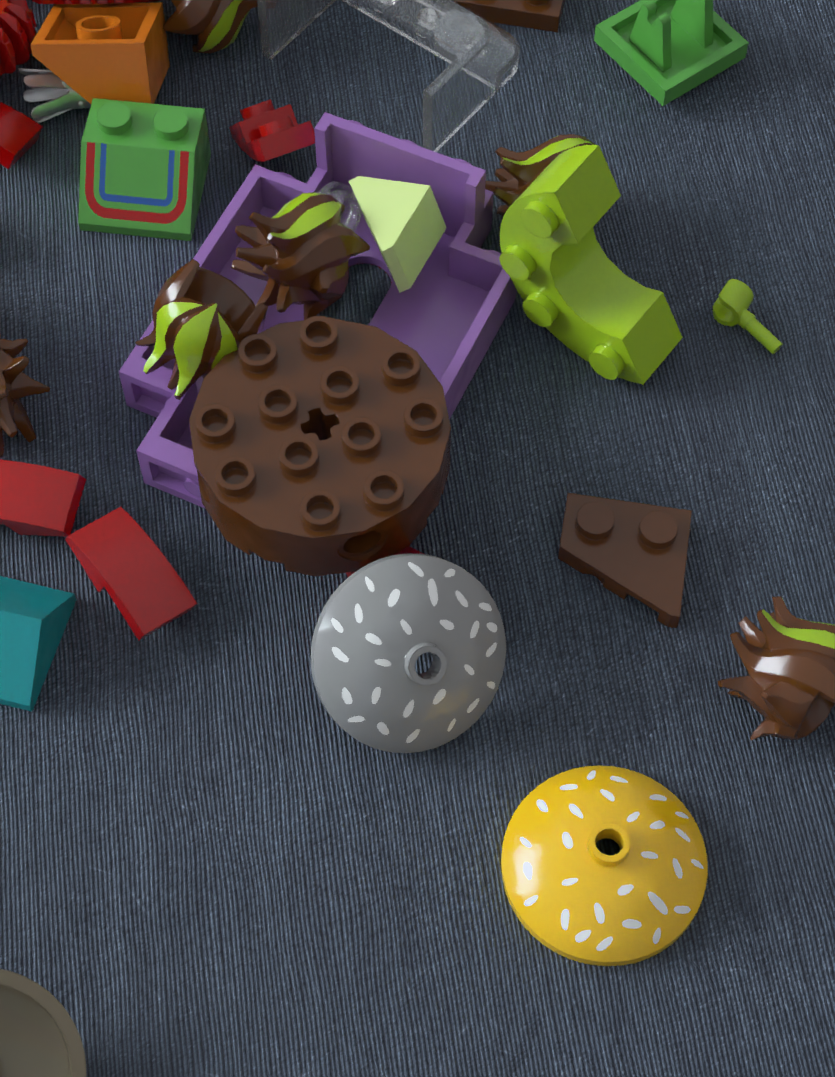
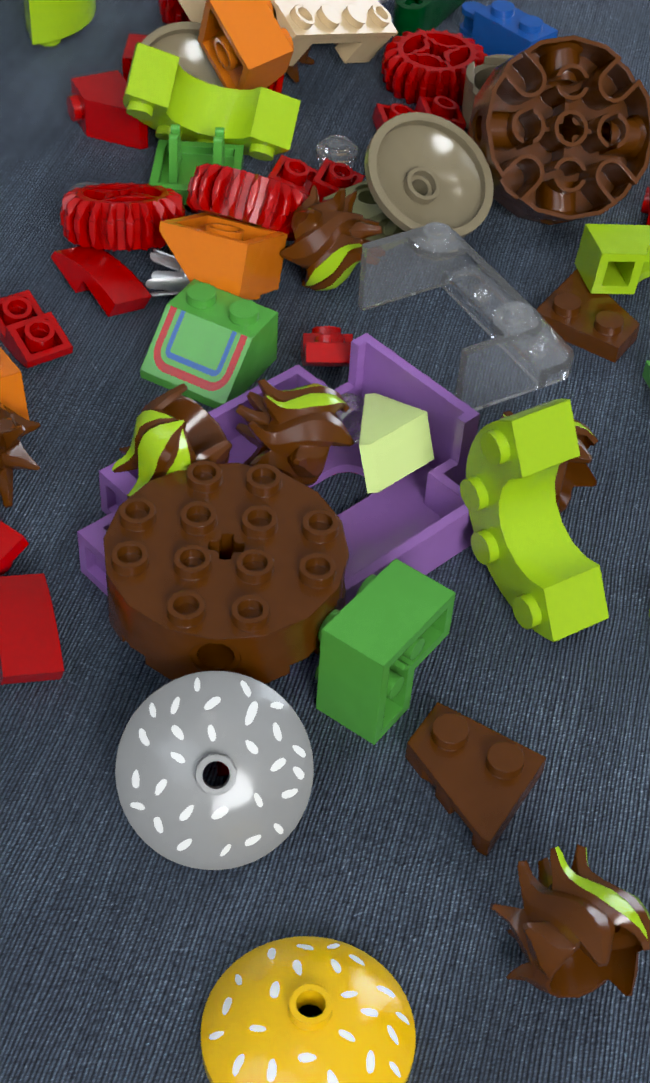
camera: 20 degrees right, 15 degrees down
(500, 464) = (376, 647): none -> bright green brick

